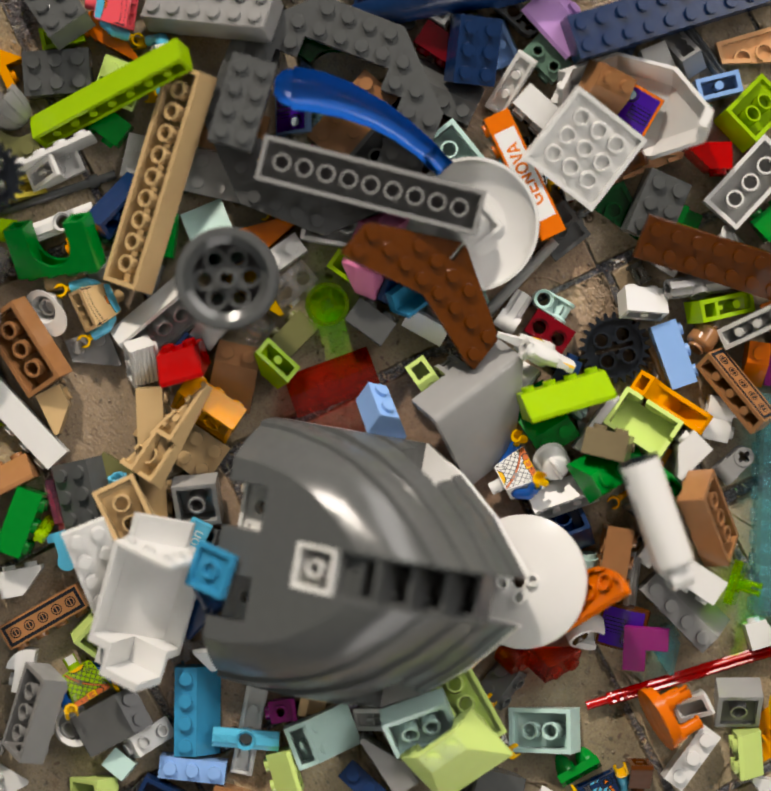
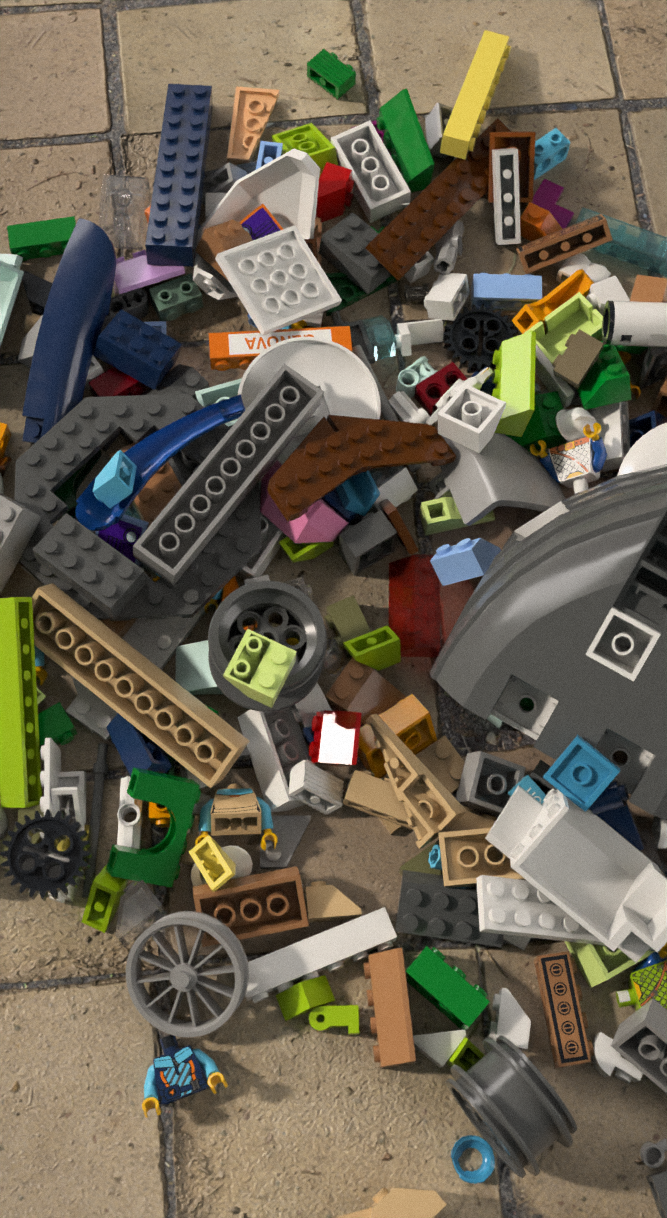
camera: 70 degrees left, 20 degrees down
(43, 306) = (213, 862): none -> light yellow slope
(44, 529) = (466, 966): lime axle -> none
(53, 501) = (445, 946): clear pink plate -> none
(64, 560) = (502, 957): medium azure leg -> none
(188, 284) = (260, 667): none -> yellowish green slope
(327, 91) = (115, 480): none -> medium azure slope
(327, 304) = (332, 576): clear neon green cylinder -> none
(392, 344) = (402, 532): none -> reddish brown tile
(508, 370) = (470, 418): none -> white slope
(511, 82) = (185, 333): white tile -> none
(533, 108) = (220, 315): white brick -> none
(583, 254) = (380, 336): none -> clear light blue slope
(596, 287) = (418, 333): none -> white bracket
(703, 338) = (500, 260): medium nougat head -> none
(718, 307) = (475, 240): lime slope -> none
(729, 466) = (627, 271): light grey piece -> none

